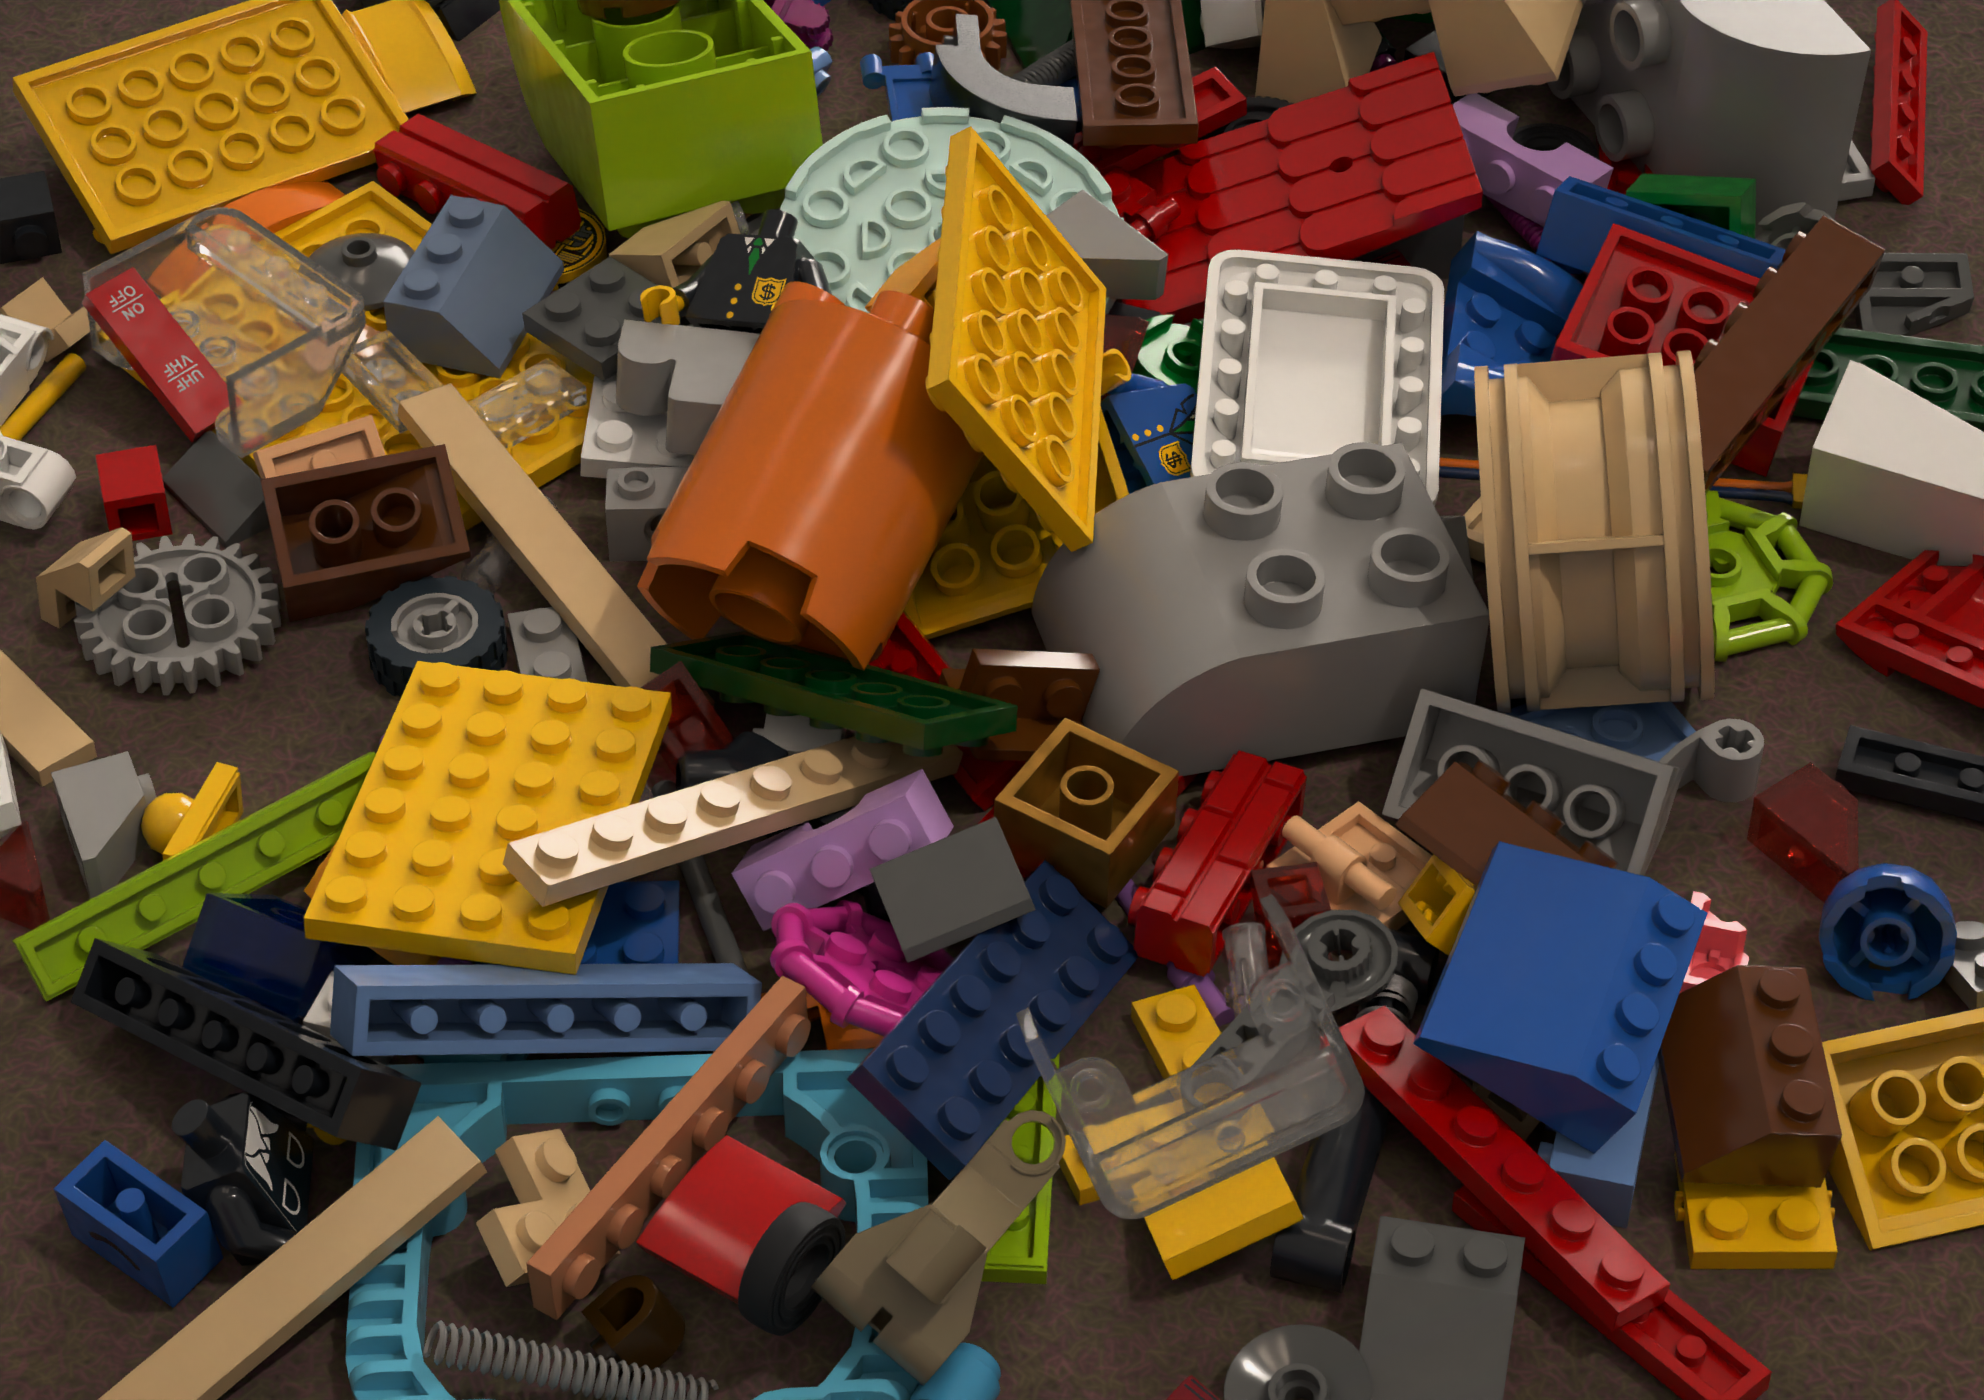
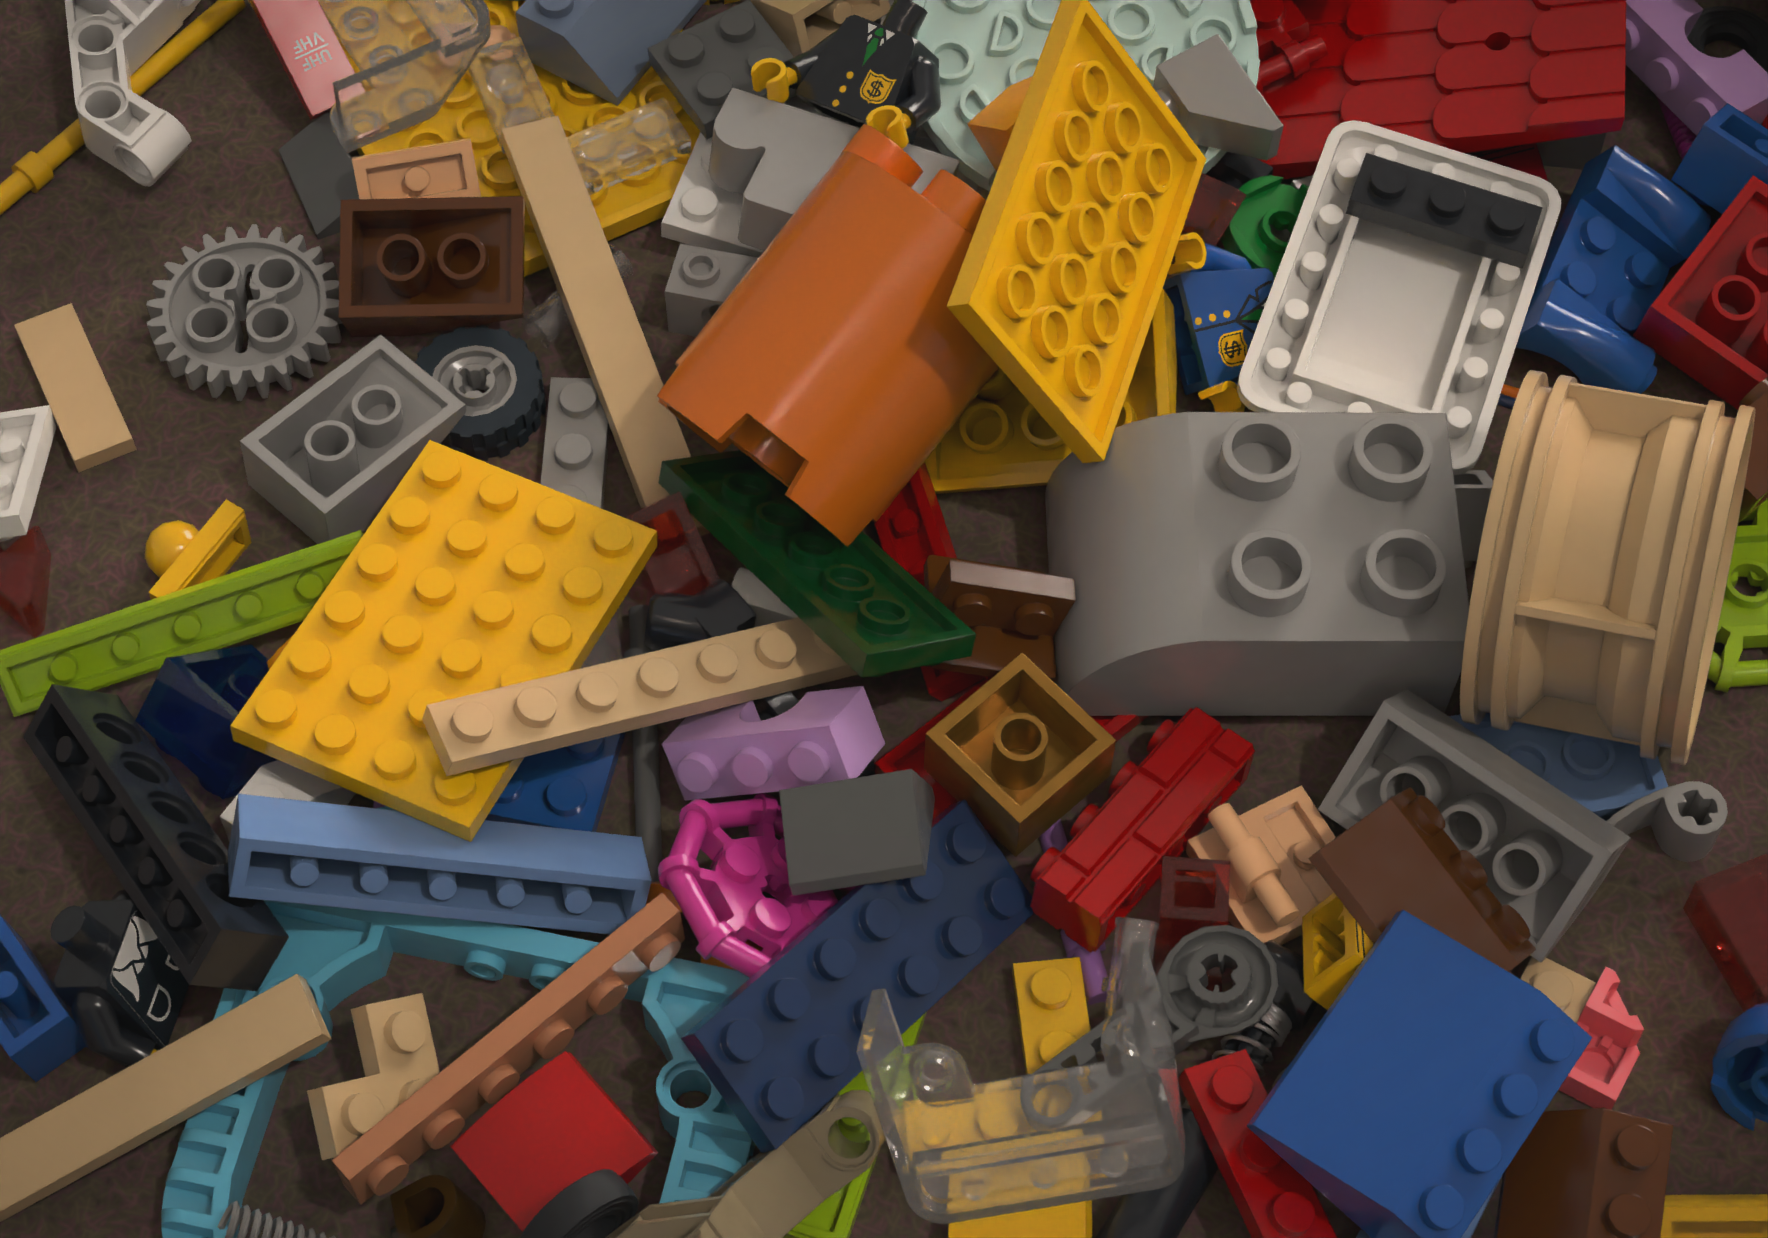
camera: 15 degrees right, 15 degrees up
(86, 575) = (166, 259): tan slope -> none
(103, 817) = (111, 531): light grey slope -> none
(134, 492) = (243, 166): red brick -> none
(322, 693) = (348, 441): none -> light grey slope
(1338, 303) = (1444, 210): none -> black plate

